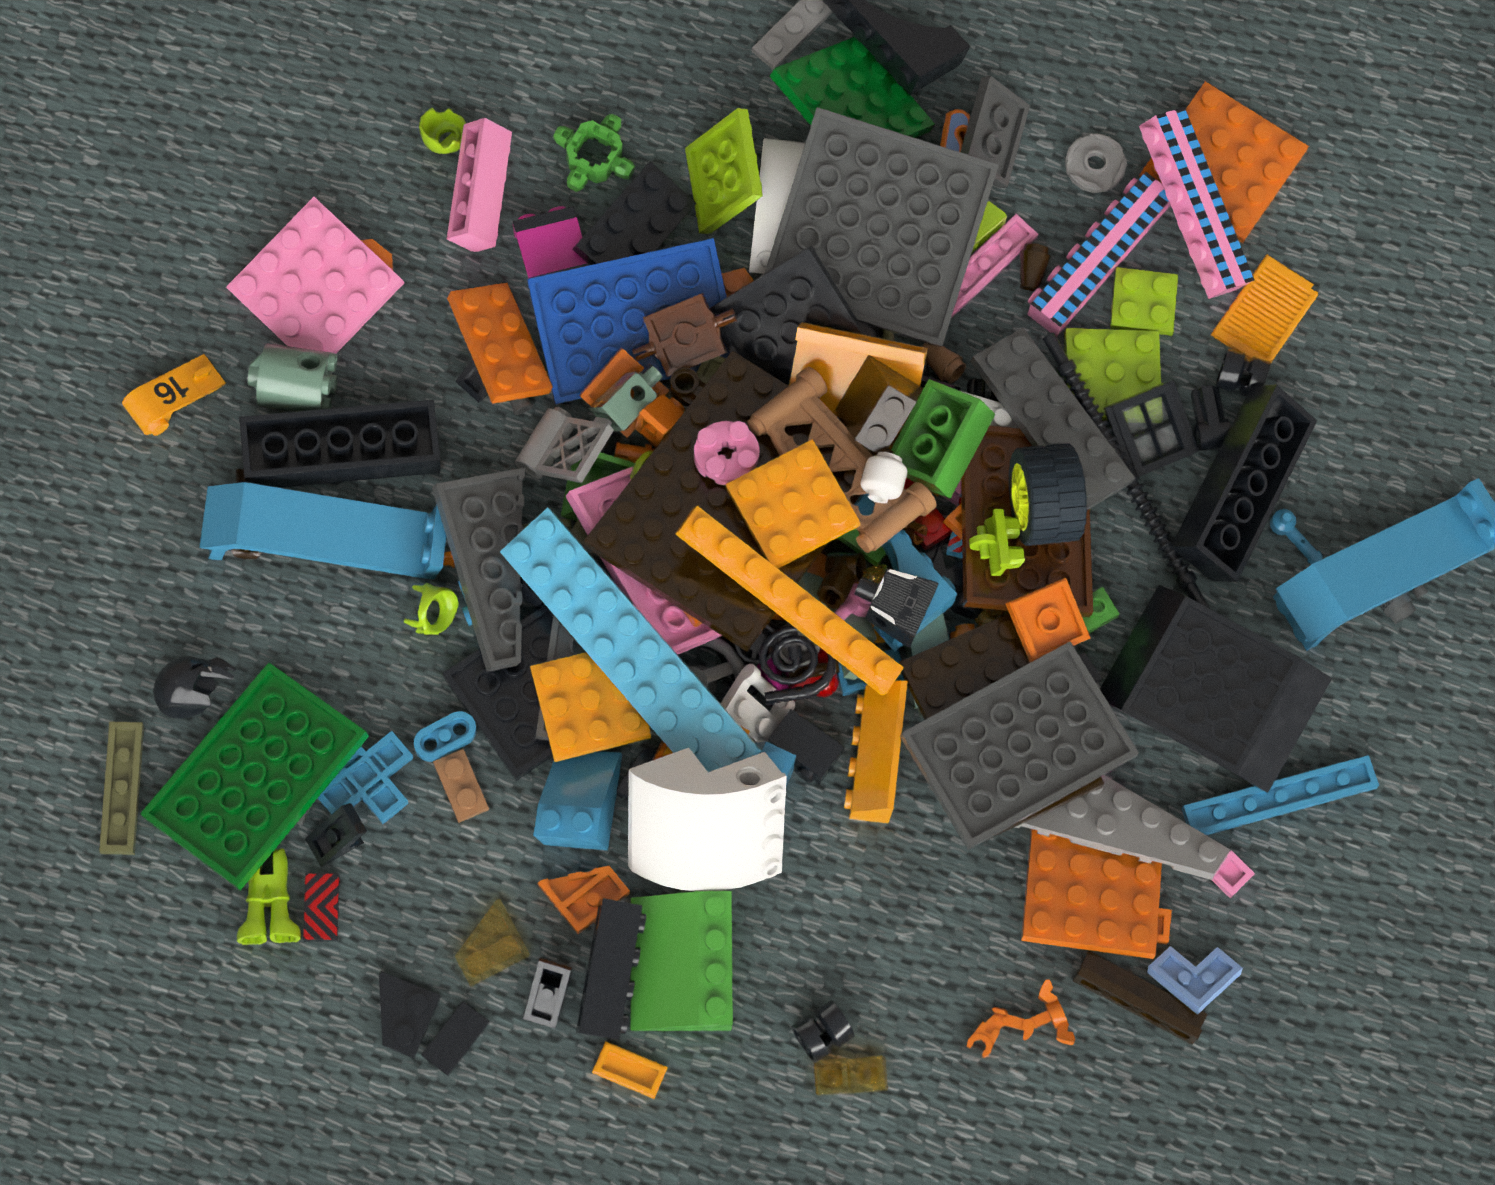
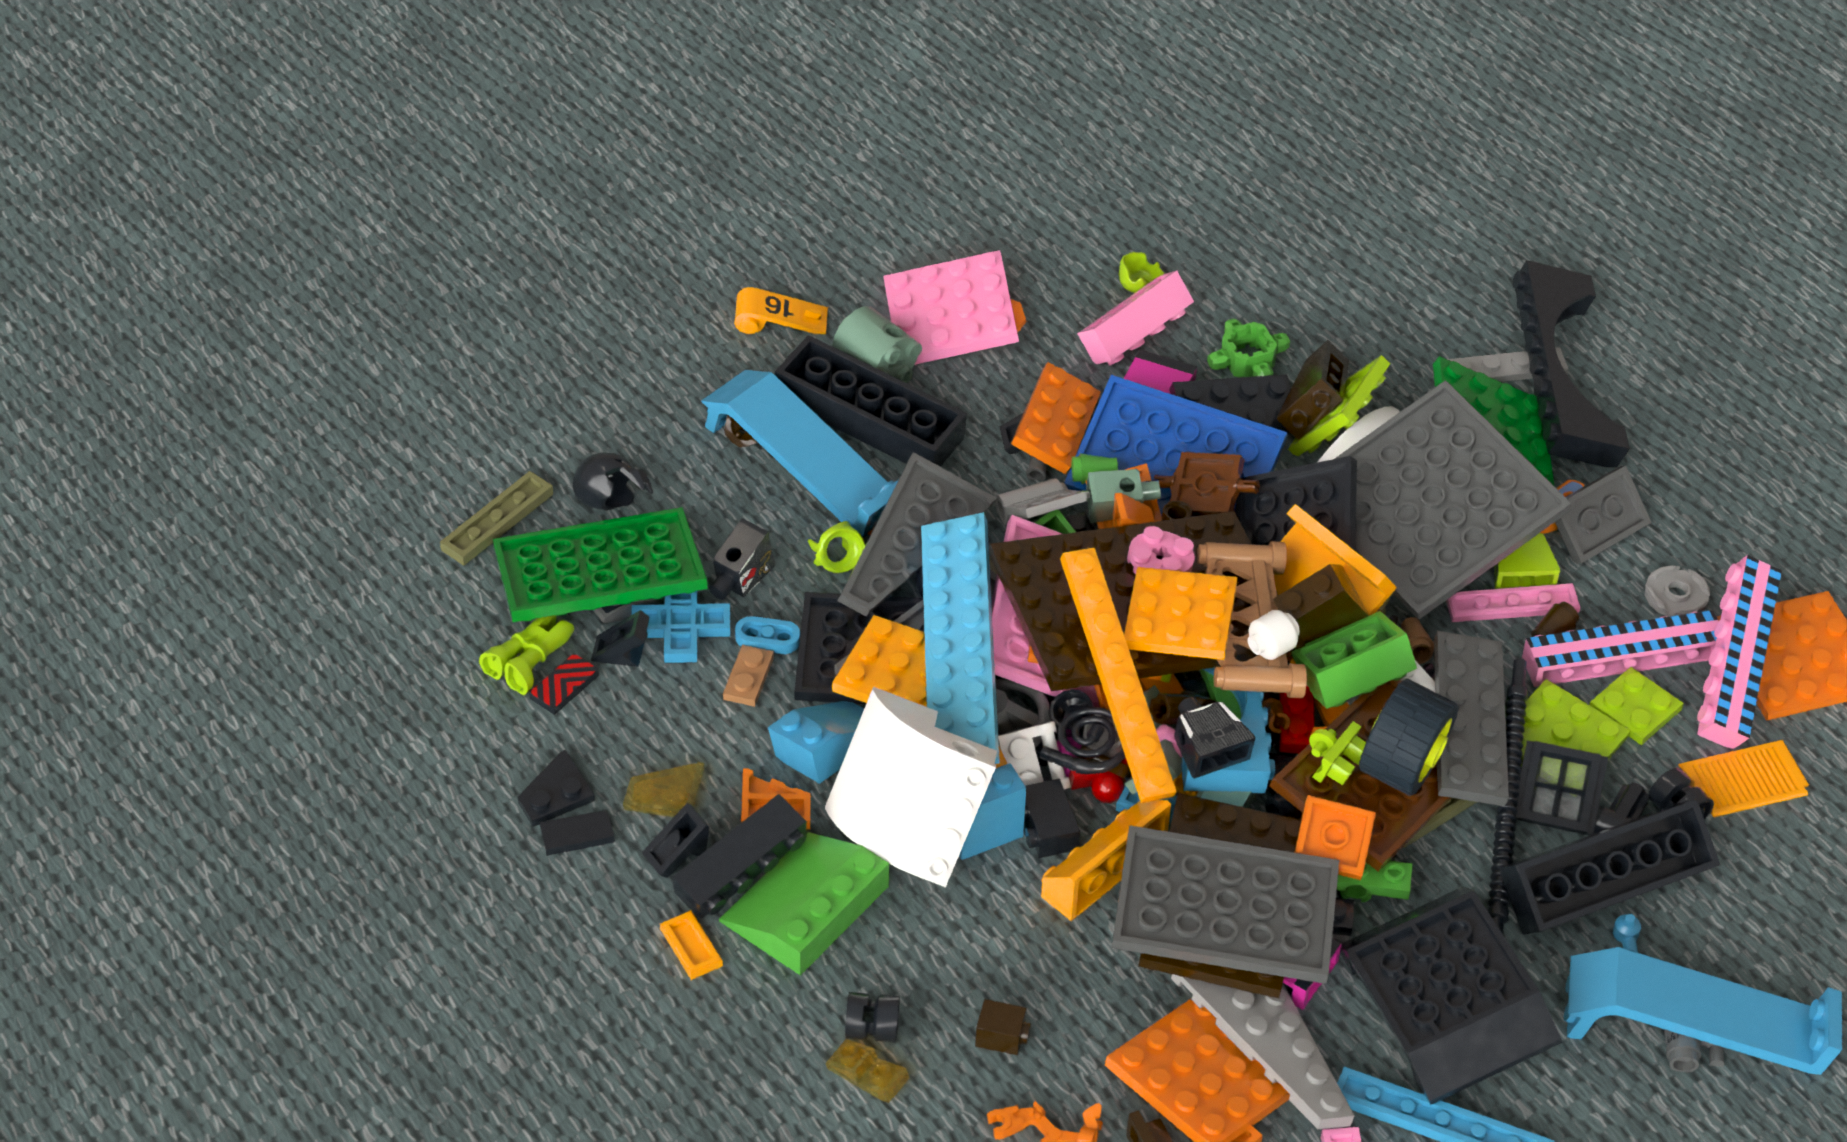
camera: 45 degrees right, 25 degrees down
(370, 669) = (742, 560): none -> black torso
(575, 379) = (1090, 463): none -> bright green cone
(690, 162) = (1315, 391): none -> dark brown slope
(921, 963) = (1002, 1027): none -> dark brown brick

